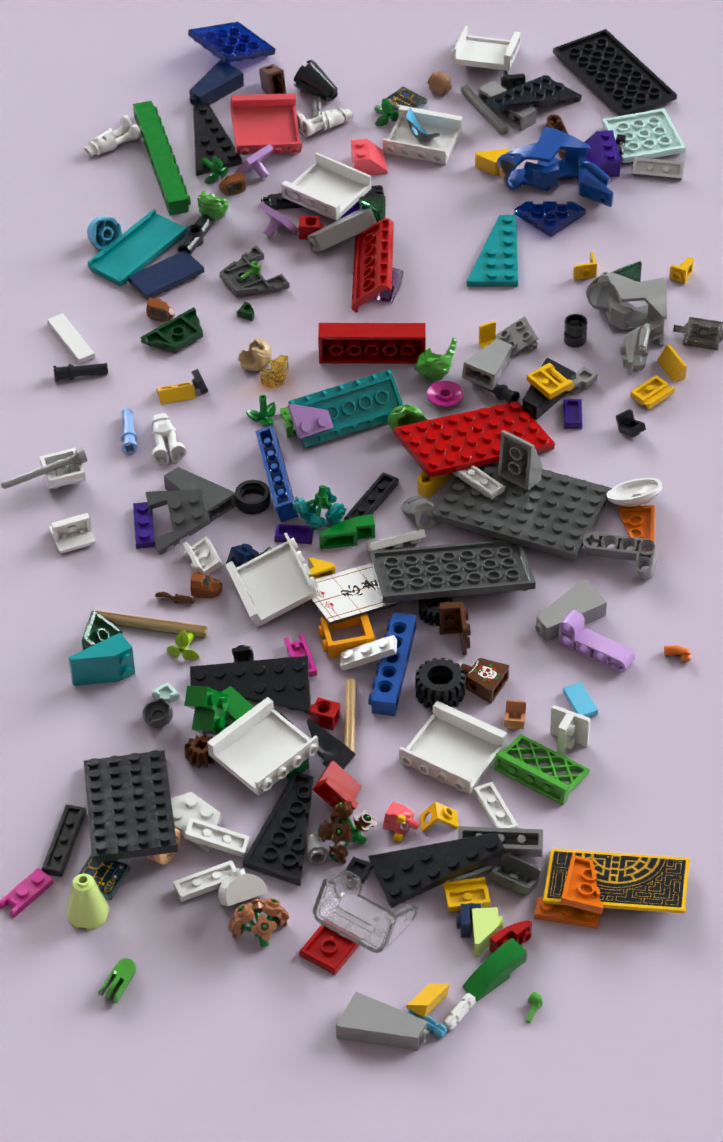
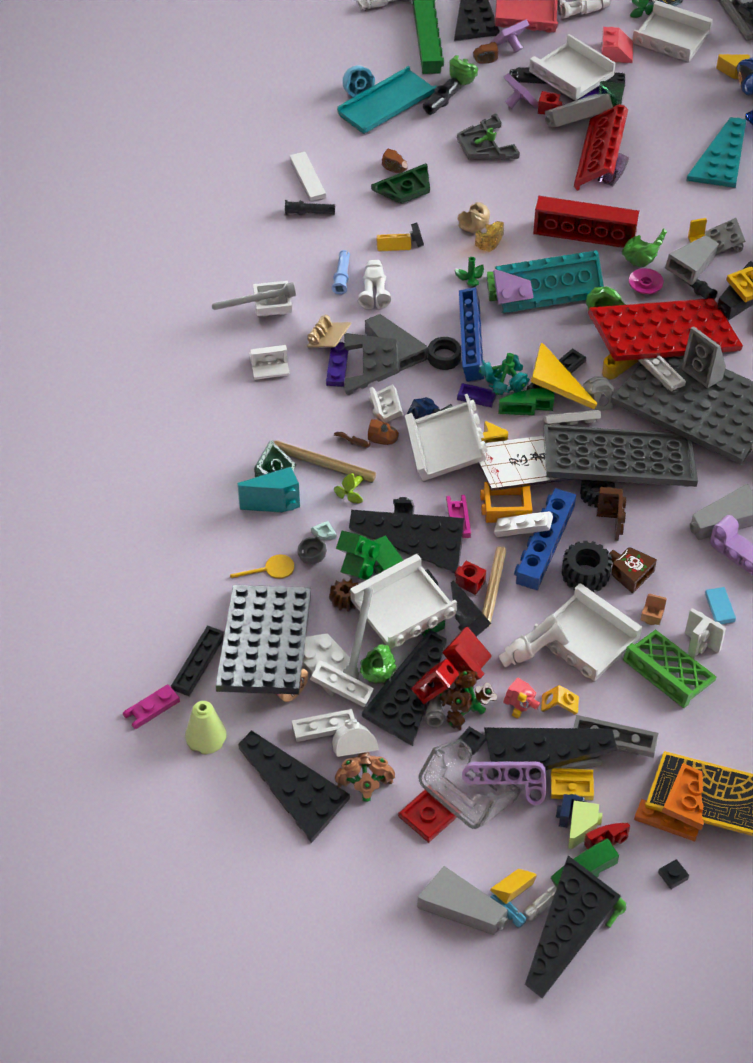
camera: 10 degrees right, 5 degrees up
(107, 875) = (229, 704): black tile -> none
(119, 976) = (223, 807): bright green arm -> none
(124, 735) = (277, 566): none -> yellow piece
(126, 495) = (327, 333): none -> tan hinge
(166, 274) = (407, 129): dark blue tile -> none
(192, 945) = (300, 790): none -> black wing
(216, 168) = (474, 37): green plant -> none
(224, 822) = (352, 669): none -> light grey piece
(246, 312) = (474, 175): dark green tile -> none
(249, 812) = (378, 664): none -> bright green hair
(317, 813) = (442, 675): none -> red torso
(368, 501) = (552, 375): none -> yellow tile
(395, 770) = (528, 645): none -> white piece
(398, 898) = (505, 778): none -> lavender beam
(417, 129) = (667, 23): piece -> none
(493, 1016) = (574, 915): none -> black wing
(494, 806) = (617, 700): white tile -> none
(516, 874) = (624, 772): dark grey bracket -> none
(582, 962) = (673, 874): none -> black plate

